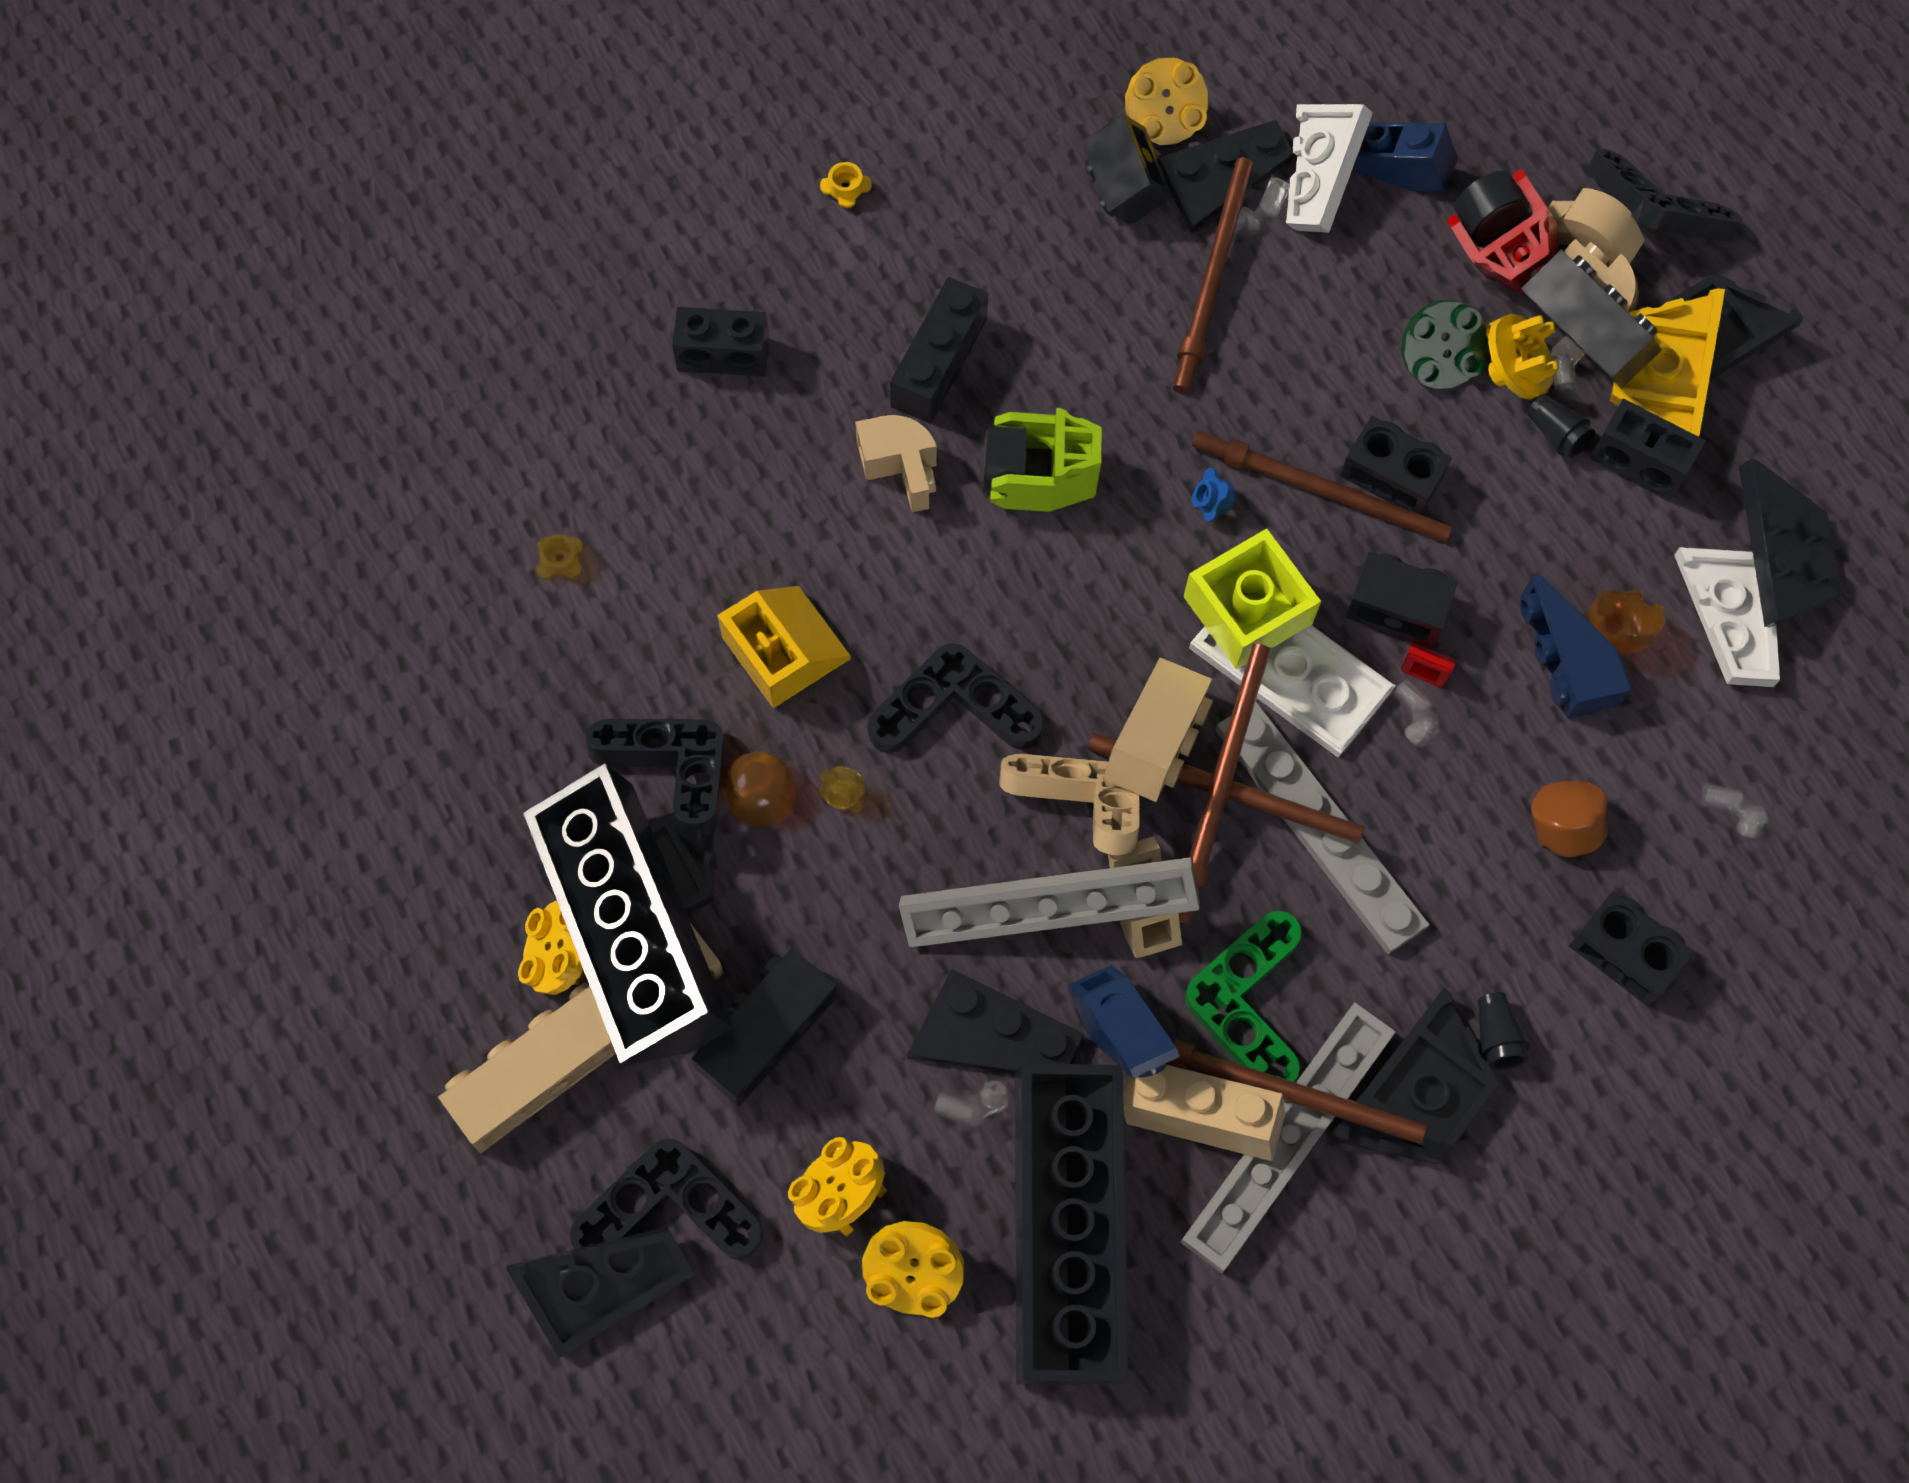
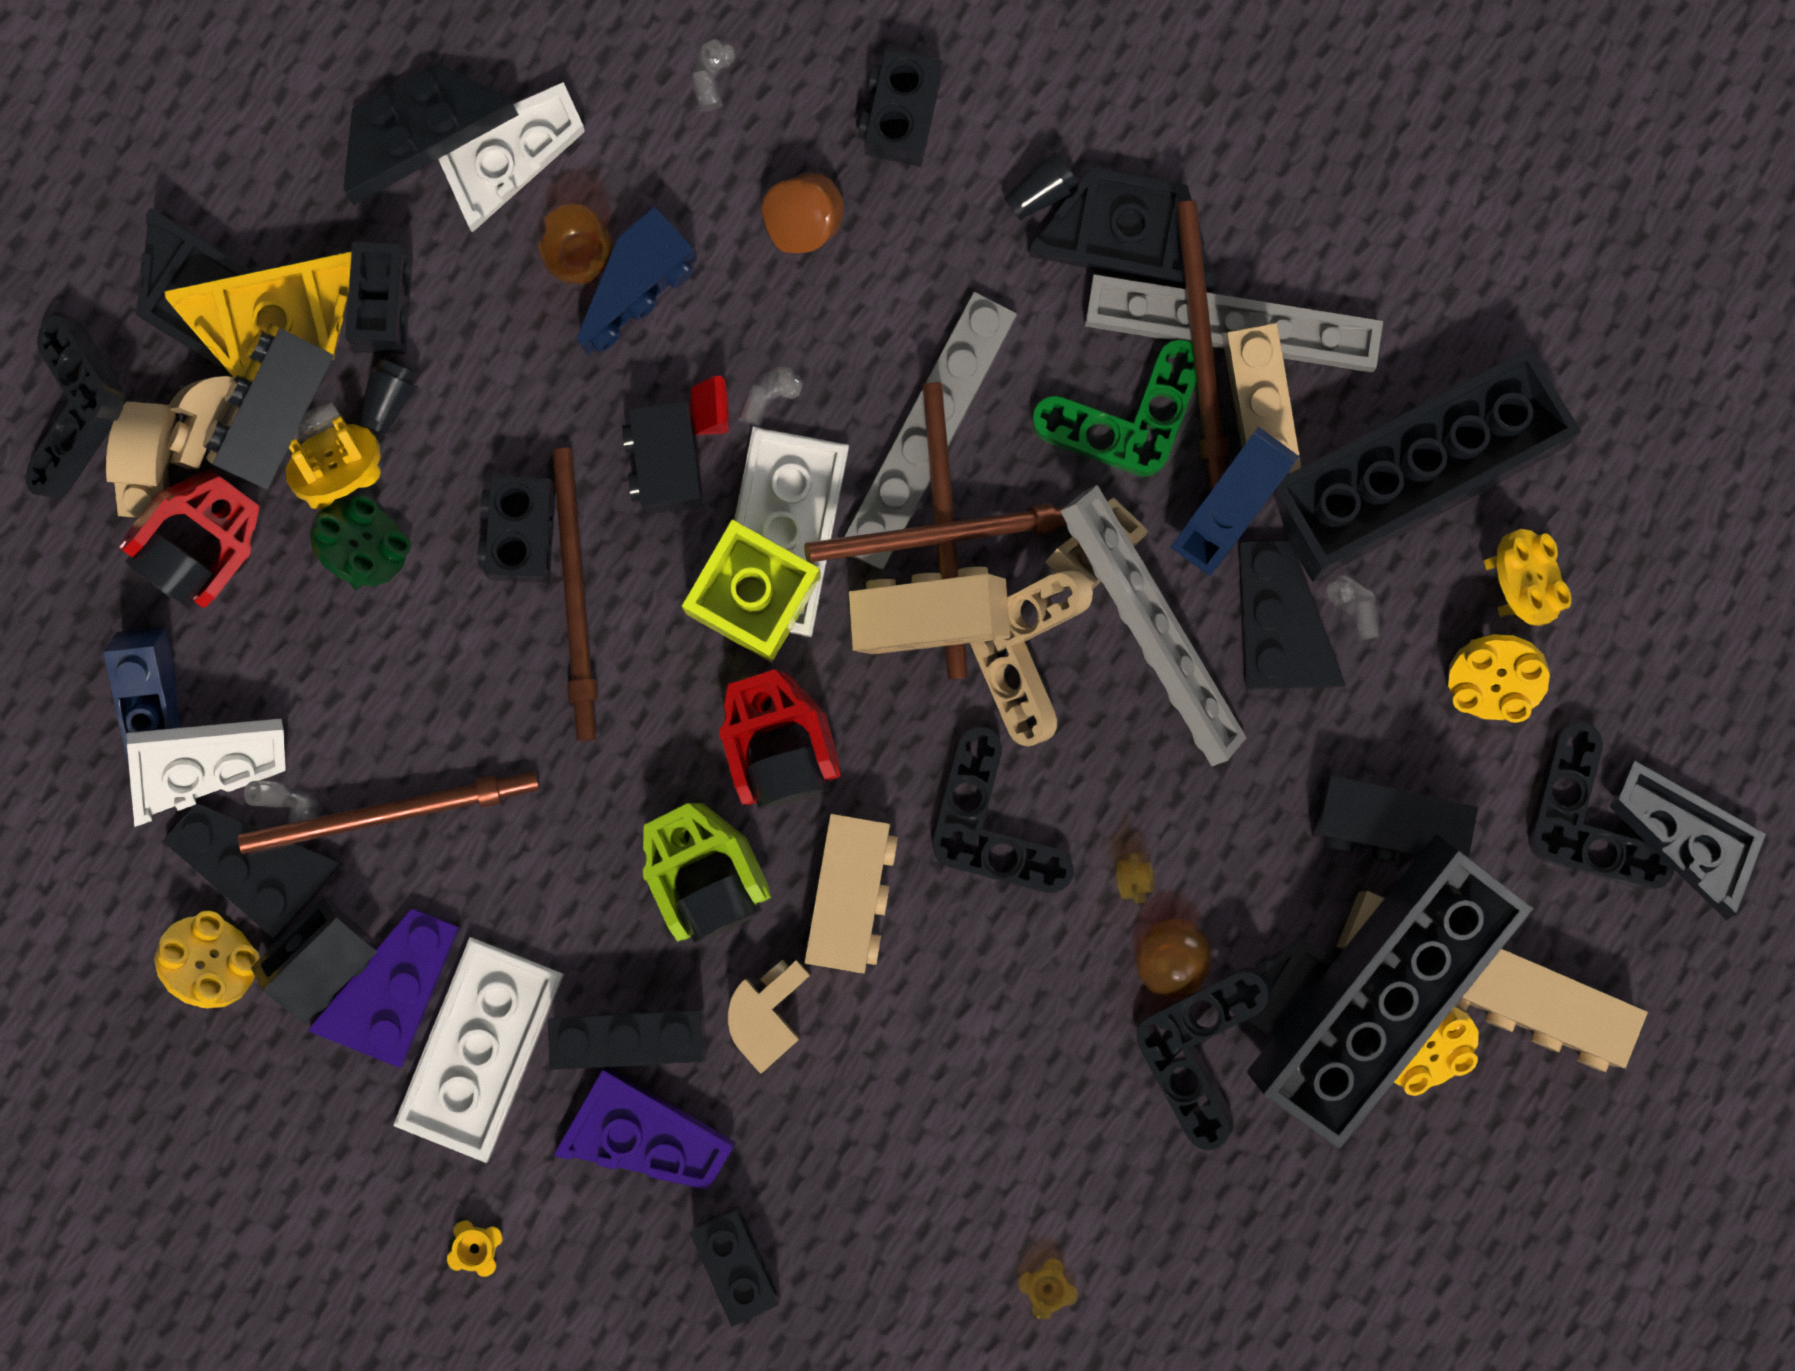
camera: 120 degrees left, 15 degrees up
(781, 641) = (1023, 1015): yellow slope -> none
(861, 332) = (643, 1133): none -> dark purple wing
(959, 563) = (850, 894): none -> tan brick
(994, 253) = (478, 1050): none -> white tile
(1069, 215) = (388, 1000): none -> dark purple wing
(1149, 575) = (786, 775): none -> red piece
(1213, 495) = (644, 689): blue plate -> none

